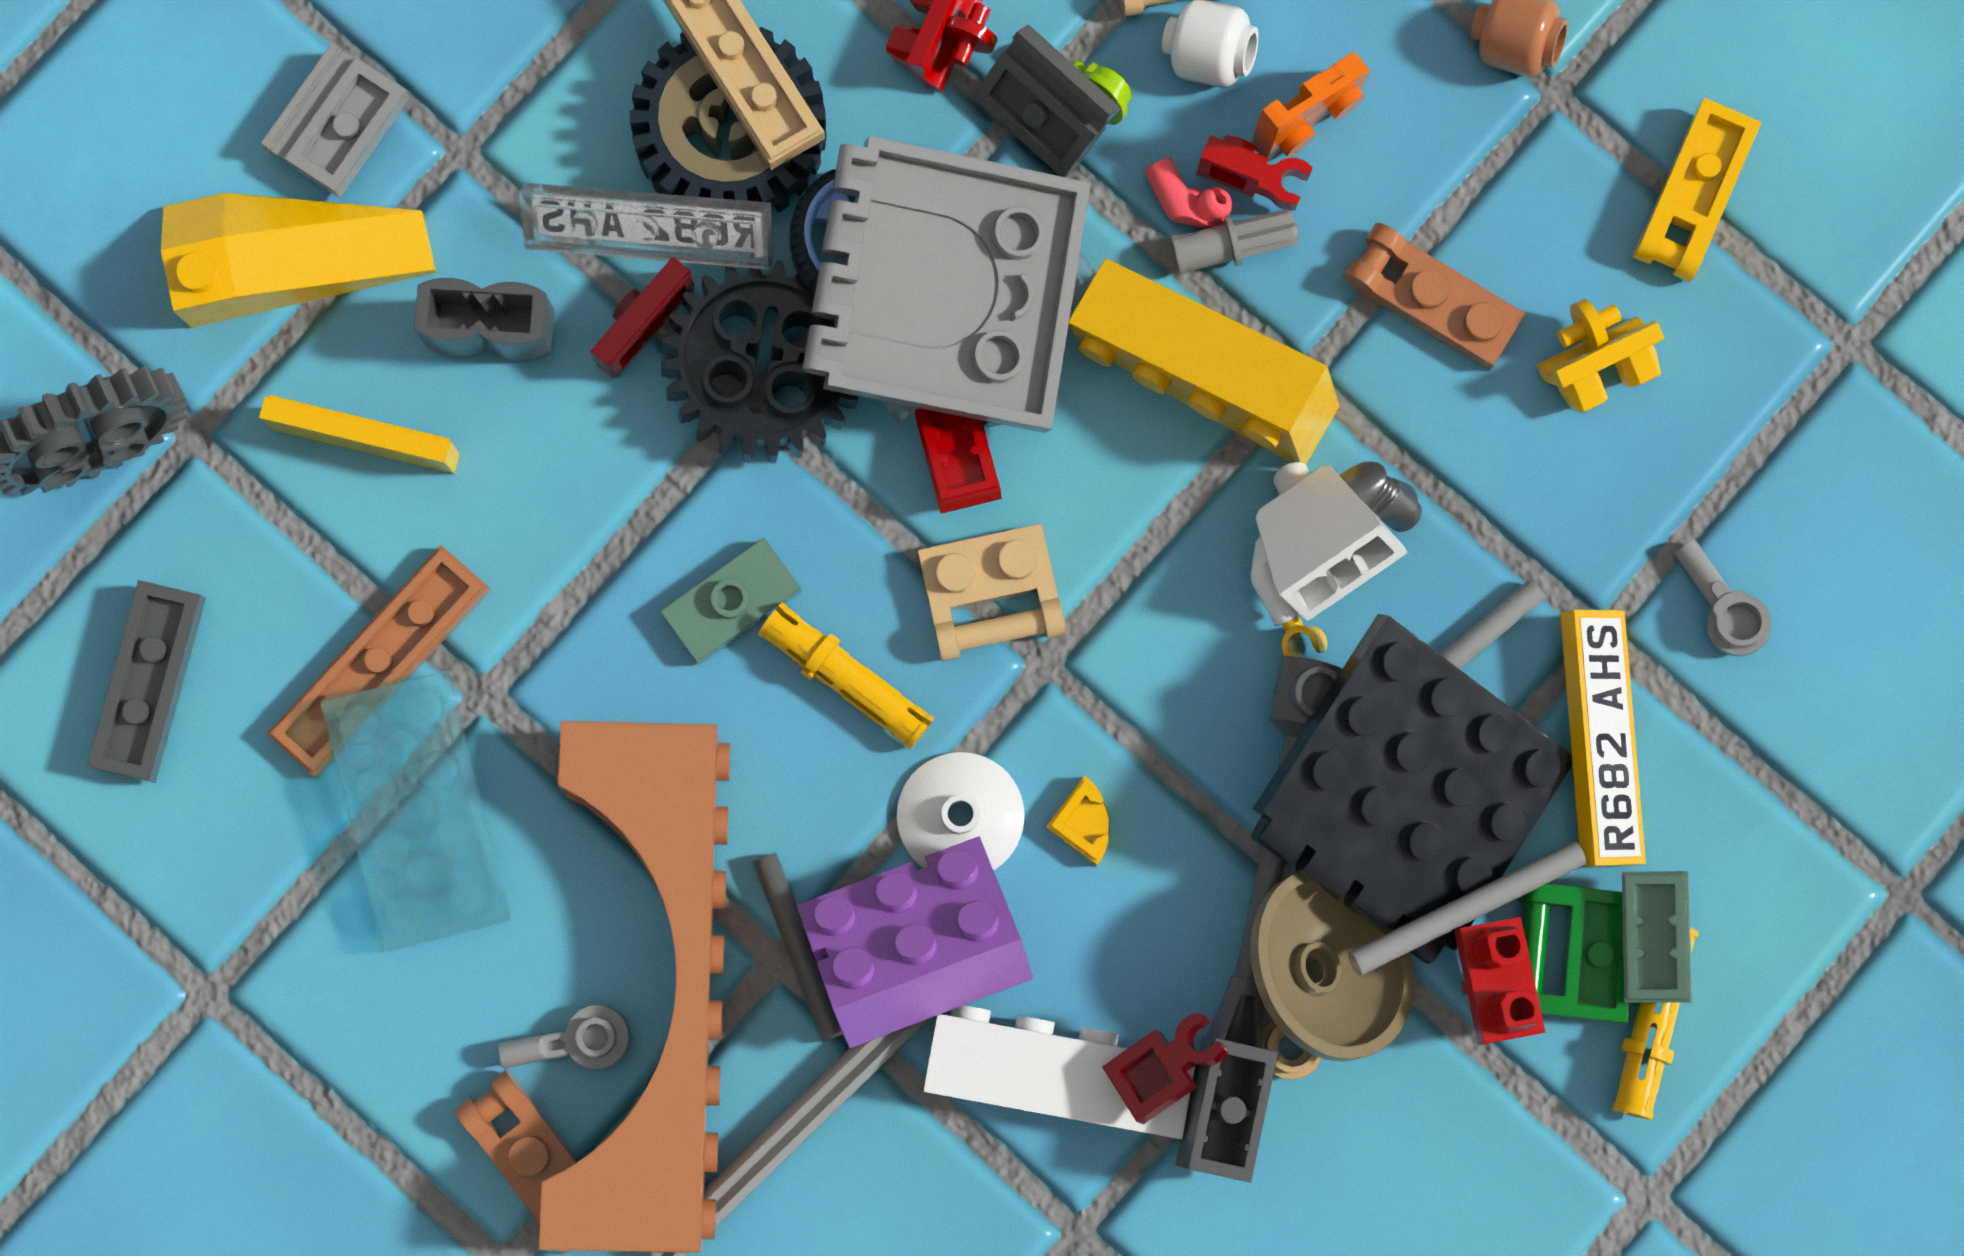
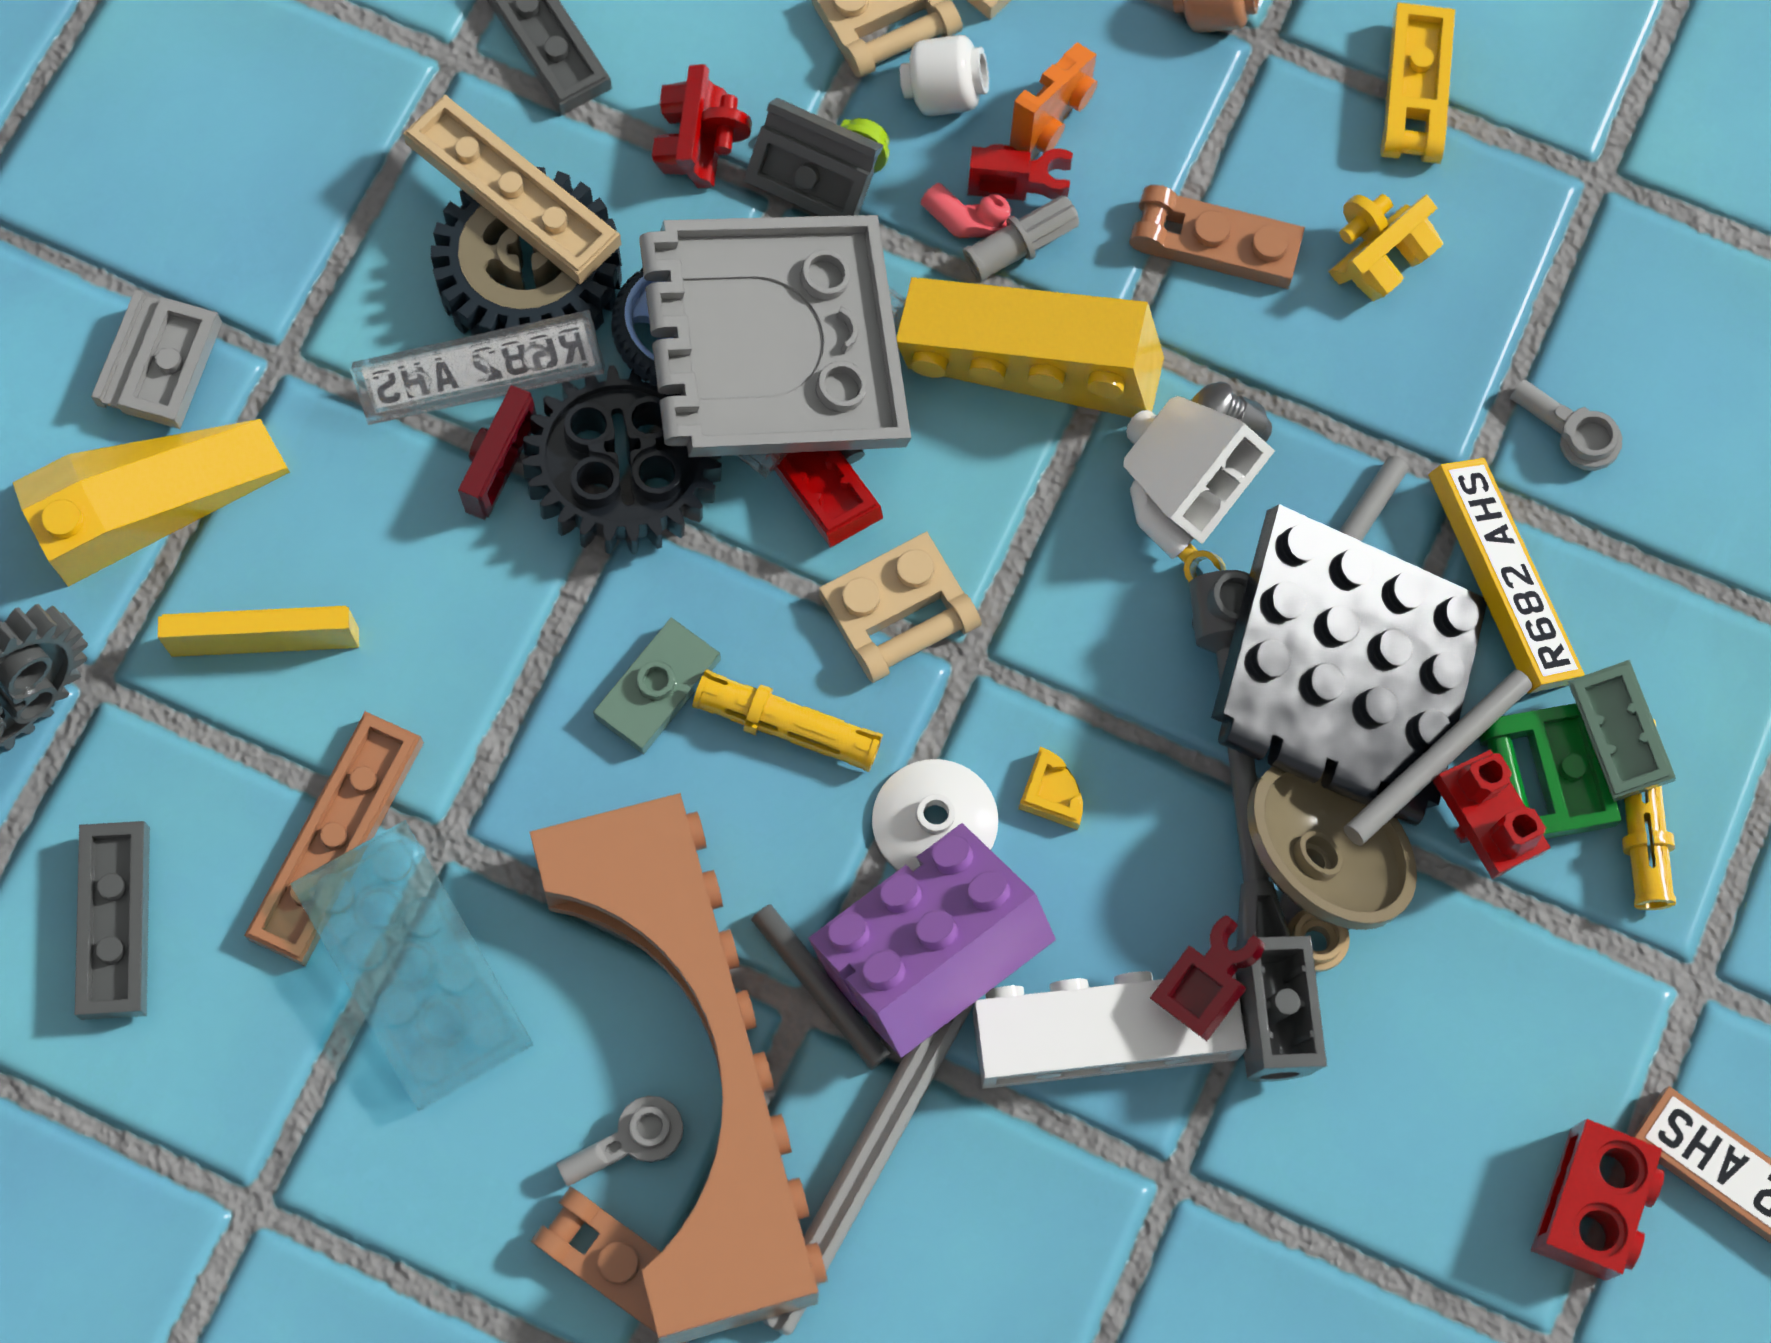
camera: 15 degrees left, 10 degrees down
(468, 320) = (336, 494): dark grey brick -> none

